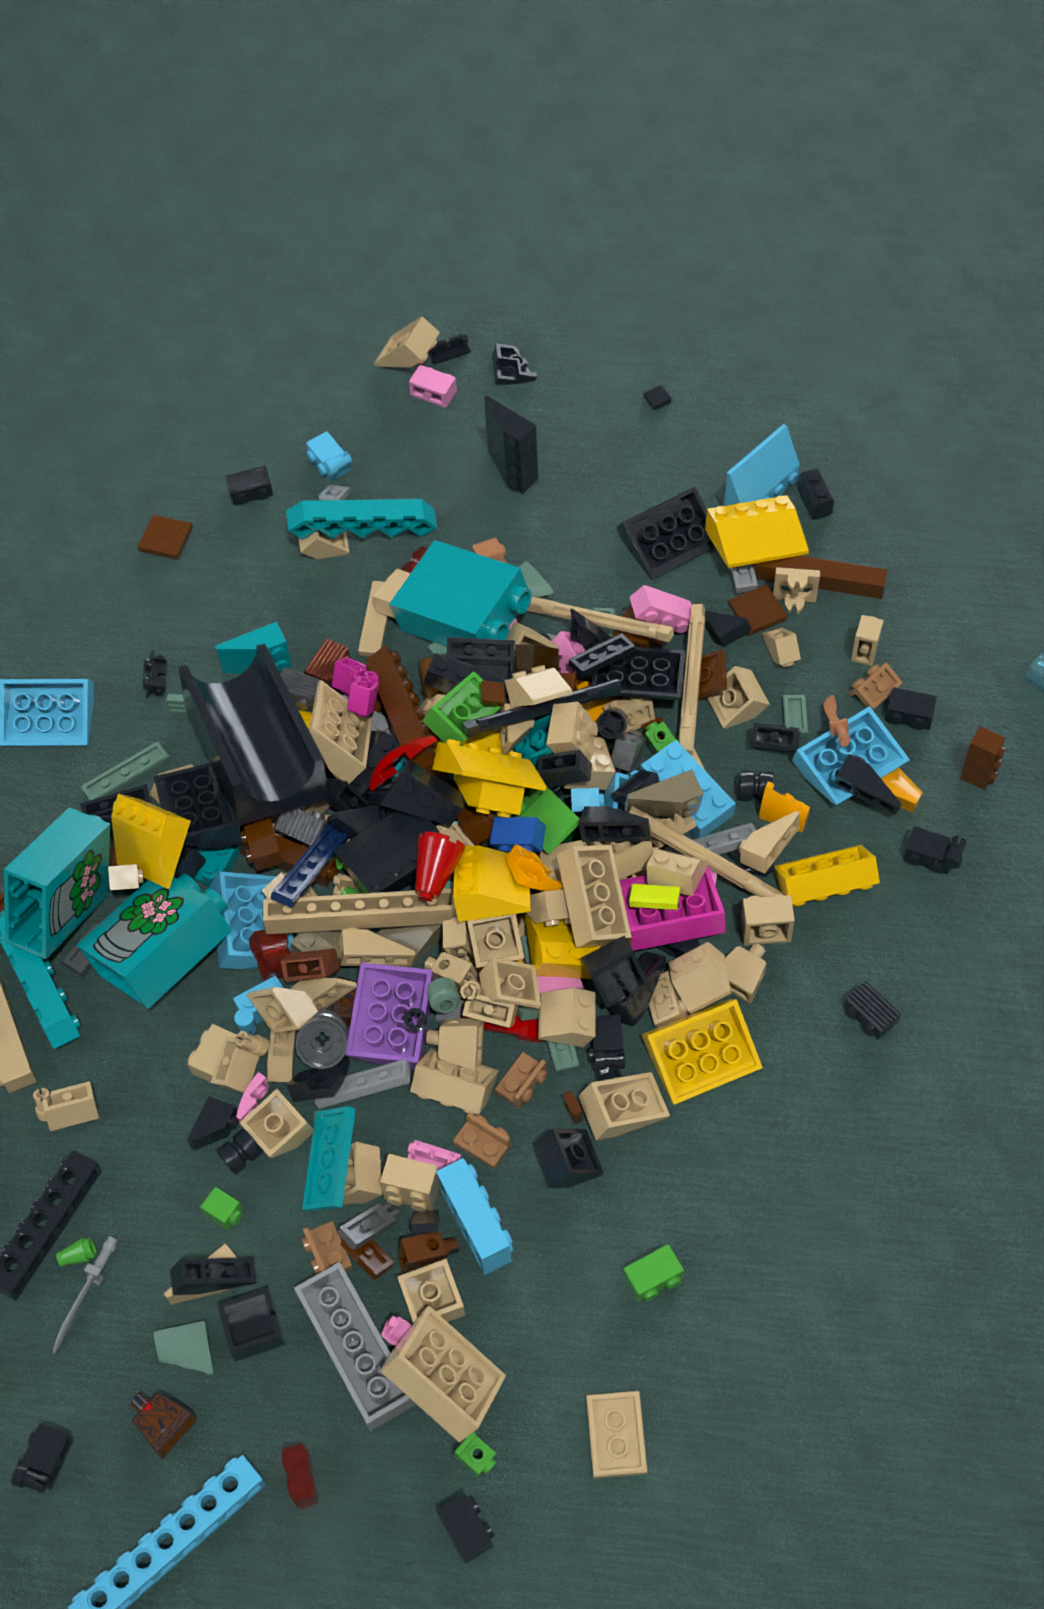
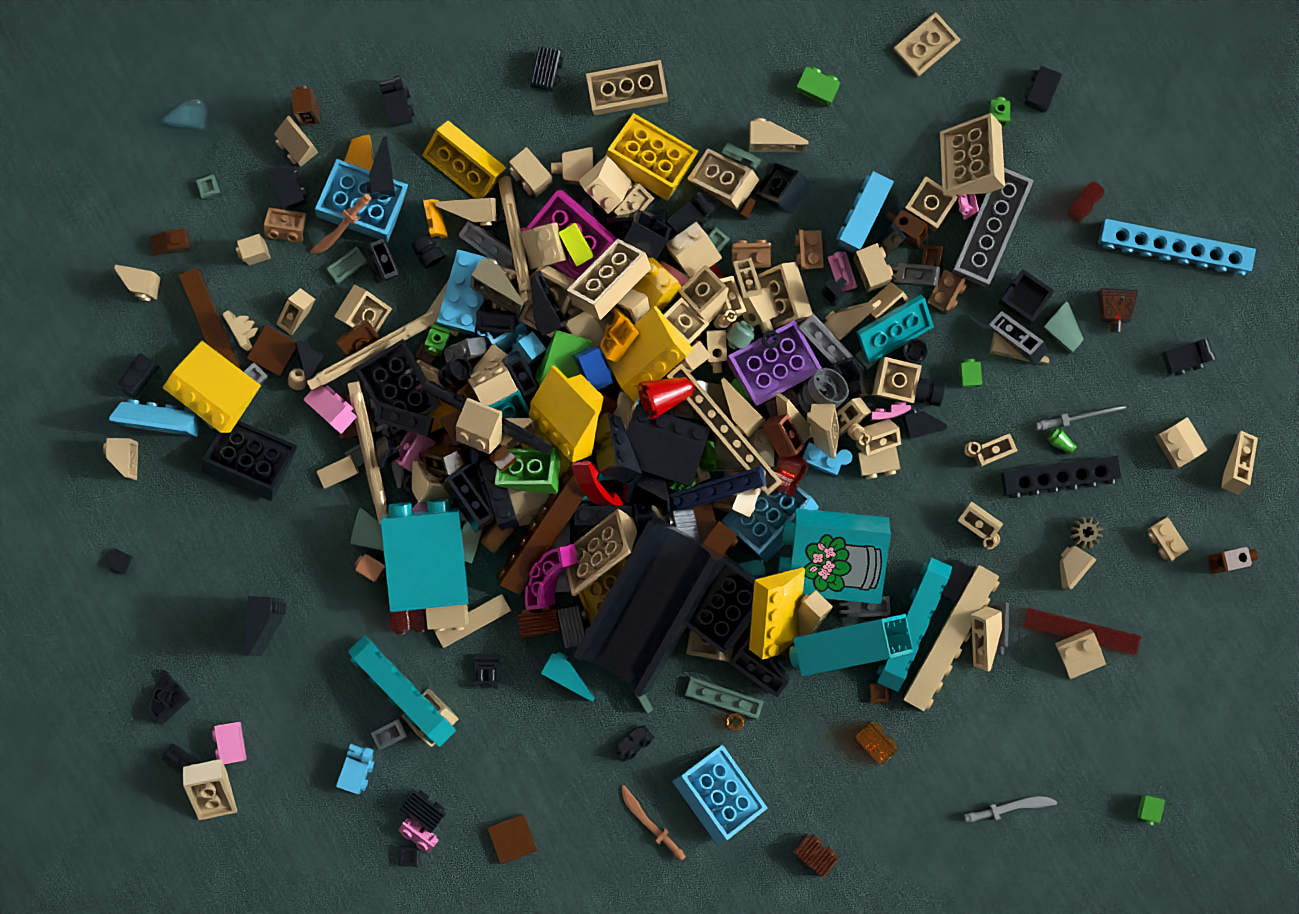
camera: 130 degrees left, 25 degrees up
(39, 1049) = (957, 581): none -> black tile
(57, 646) = (636, 809): none -> nougat sword
(95, 762) = (731, 726): none -> clear orange bush
(128, 1169) = (990, 451): none -> tan hinge
(224, 458) = (409, 856): none -> black tile
(225, 469) = (411, 830): none -> bright pink hinge
(290, 1165) = (914, 351): none -> black wheel
(329, 606) = (482, 662): none -> black piece
(377, 1119) = (848, 318): none -> tan slope
(414, 1116) = (833, 292): none -> black hinge
(494, 1044) = (747, 278): none -> tan slope
(600, 592) = (338, 472): none -> tan tile
(629, 1179) = (769, 137): none -> tan slope
(633, 1138) = (740, 155): none -> sand green slope
(714, 605) = (297, 379): none -> tan piece
(743, 435) = (123, 455): none -> tan slope
(793, 1073) = (627, 87): none -> tan brick
(904, 535) = (140, 282): none -> tan slope
(925, 589) = (170, 242): none -> reddish brown slope
(950, 740) = (295, 142): none -> tan slope
(961, 648) = (208, 186): none -> sand green tile

